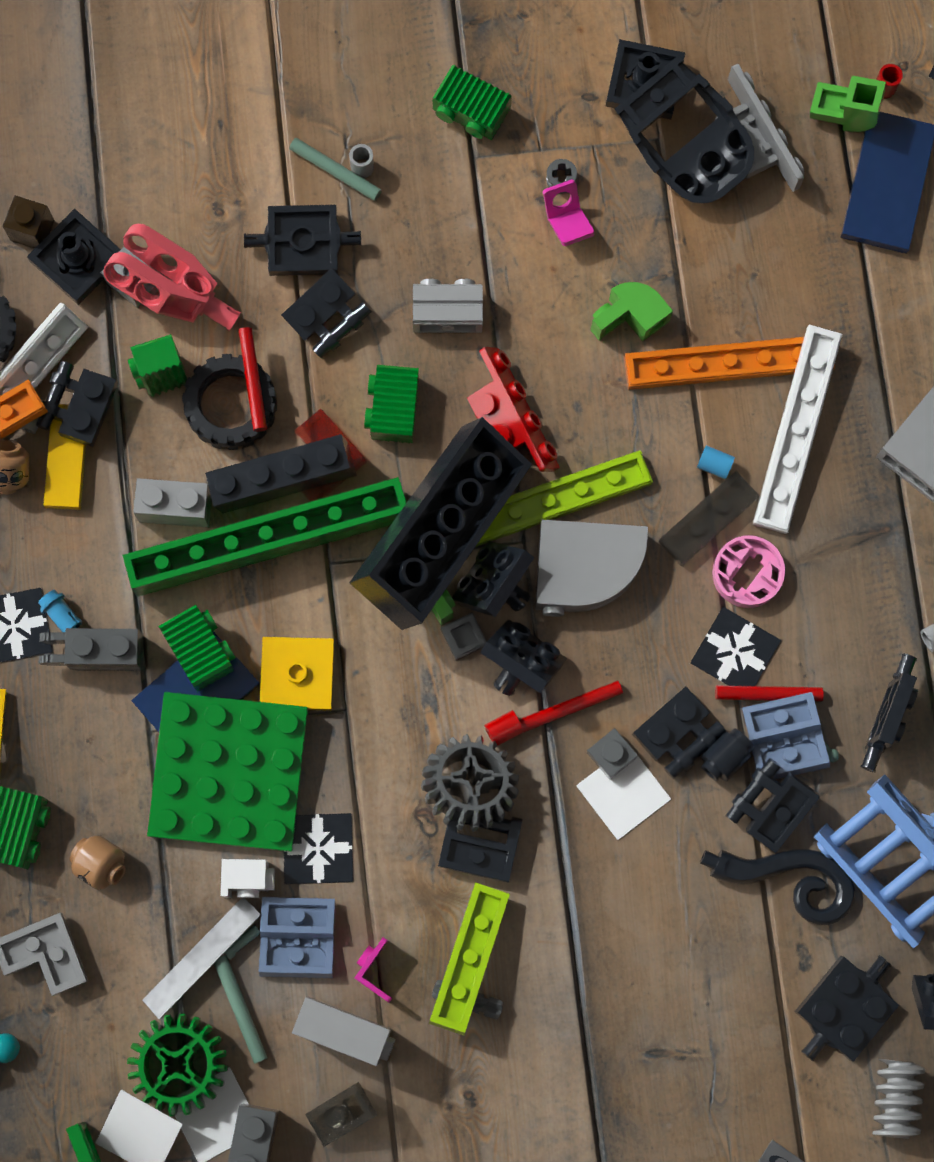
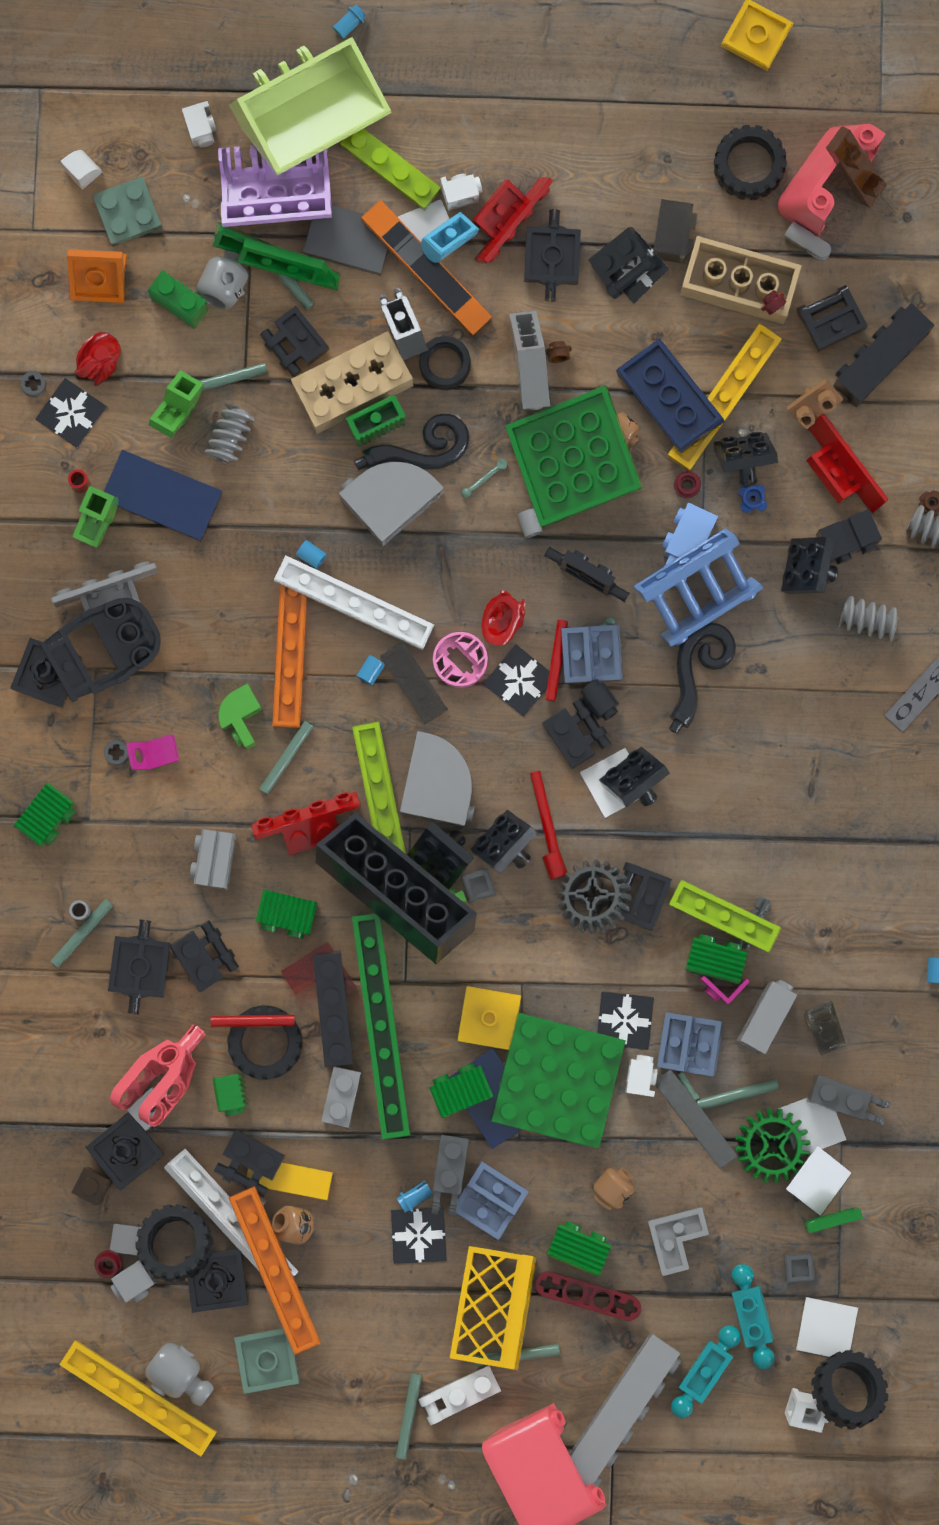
camera: 80 degrees left, 5 degrees up
(23, 1123) = (799, 1267): none -> dark grey tile
(65, 707) = (490, 1201): none -> sand blue slope
(410, 955) = (716, 960): none -> green brick
(588, 377) = (286, 757): none -> sand green bar
(612, 754) = (585, 786): dark grey plate -> none
(632, 814) = (635, 778): none -> black plate
(781, 812) = (648, 666): black plate -> none
(811, 616) = (502, 618): none -> red hat
(846, 1008) = (798, 644): black plate -> none
(849, 368) = (311, 554): none -> dark azure hinge

